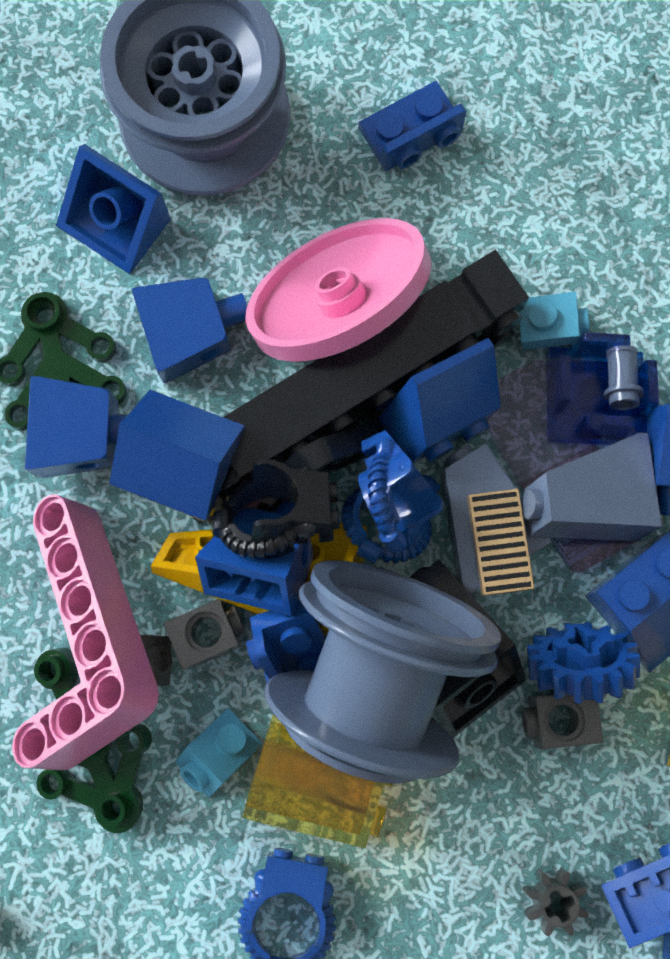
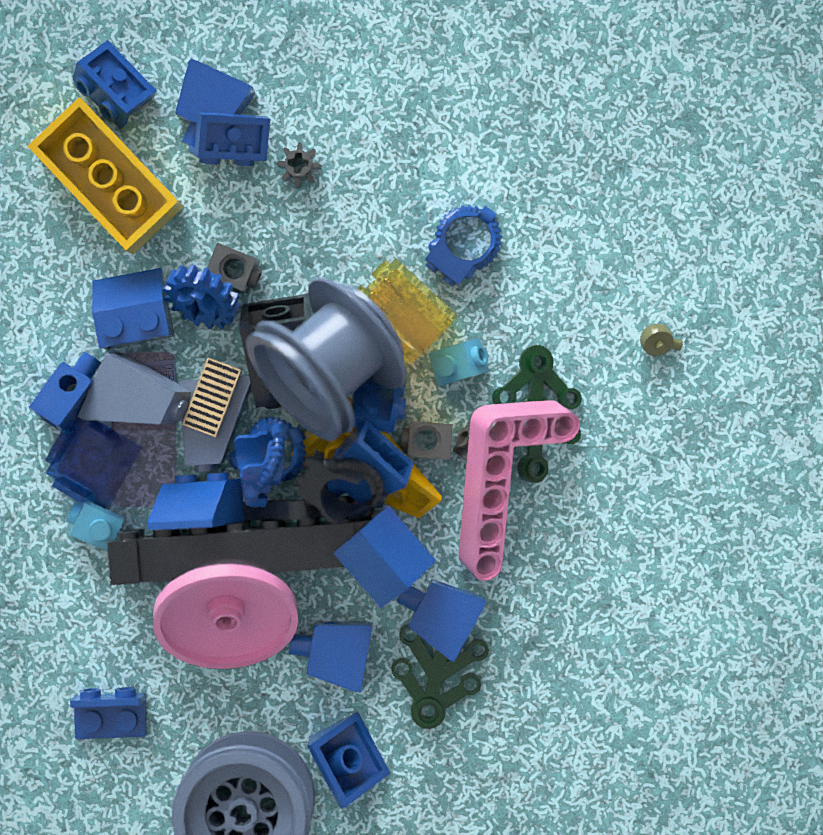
camera: 150 degrees left, 10 degrees up
(623, 384) = (72, 460): sand blue pin -> none

